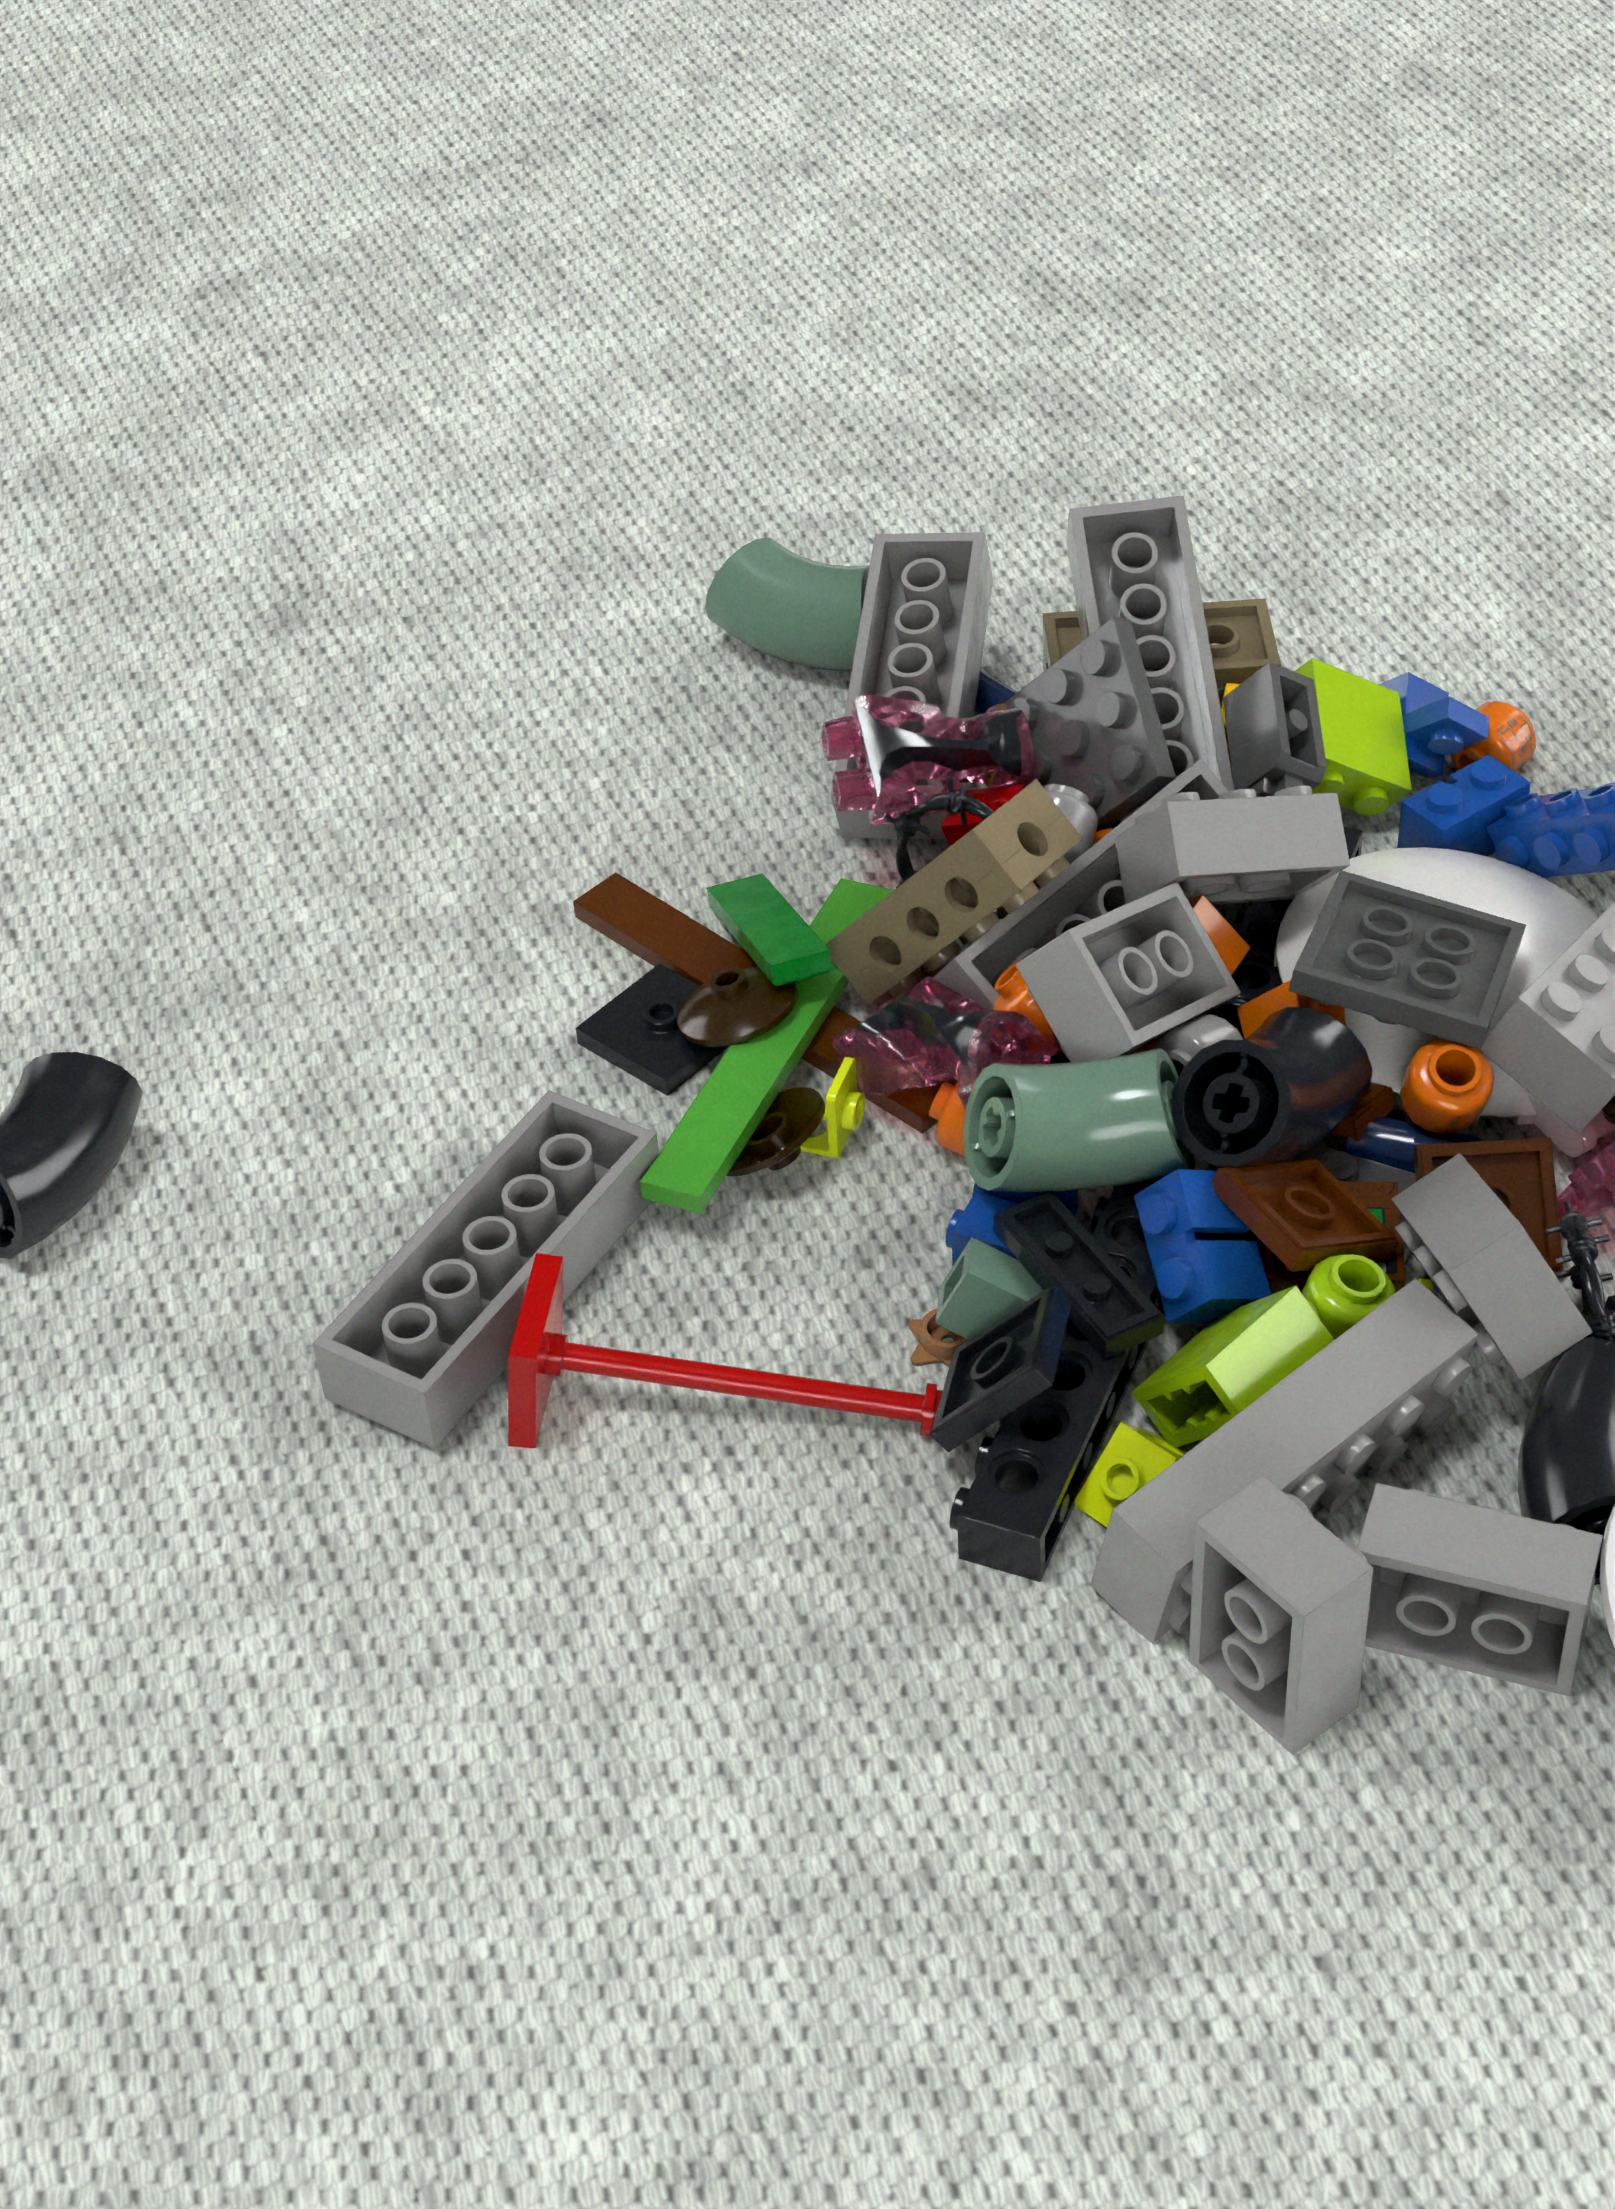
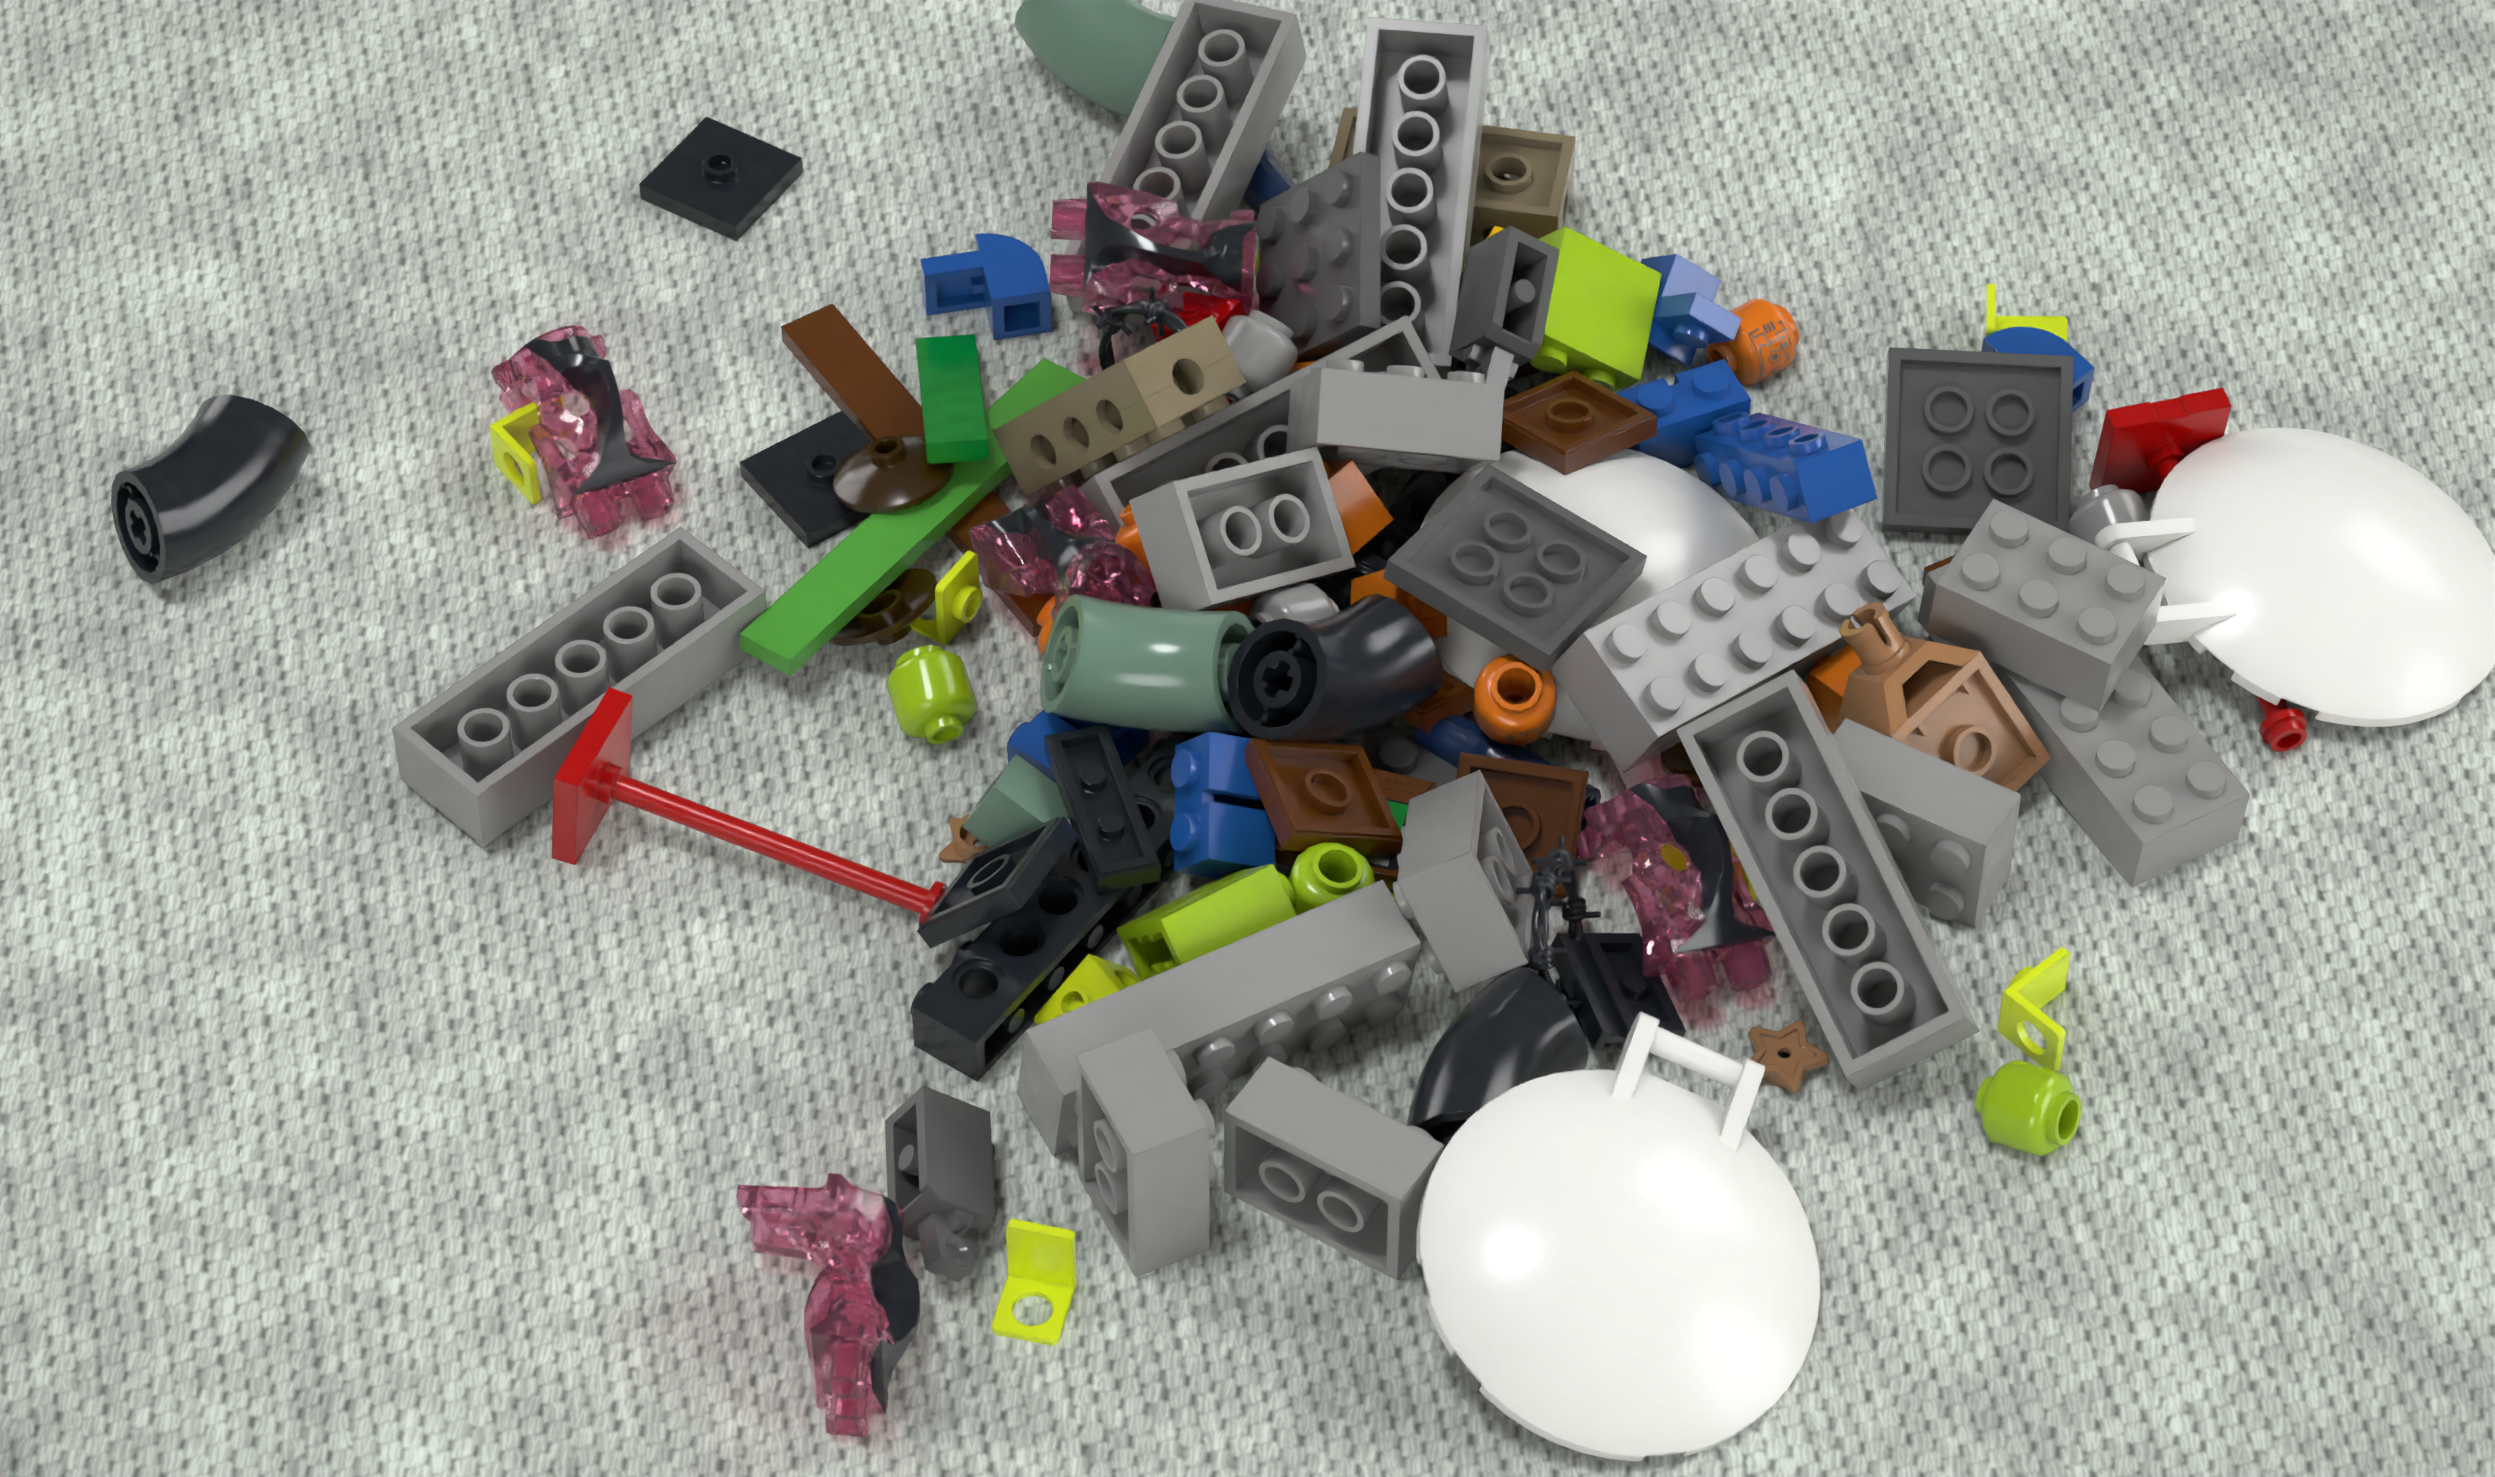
camera: 10 degrees right, 5 degrees up
(352, 1044) = (513, 444): none -> neon yellow bracket
(434, 1046) = (604, 464): none -> clear pink hips
(468, 789) = (721, 178): none -> black plate
(768, 819) = (1000, 276): none -> blue brick
(849, 1203) = (931, 694): none -> lime head
(1029, 1853) = (862, 1300): none -> clear pink hips
(1056, 1694) = (942, 1177): none -> dark grey hinge
(1197, 1764) = (1040, 1265): none -> neon yellow bracket
(1393, 830) = (1573, 422): none -> reddish brown tile

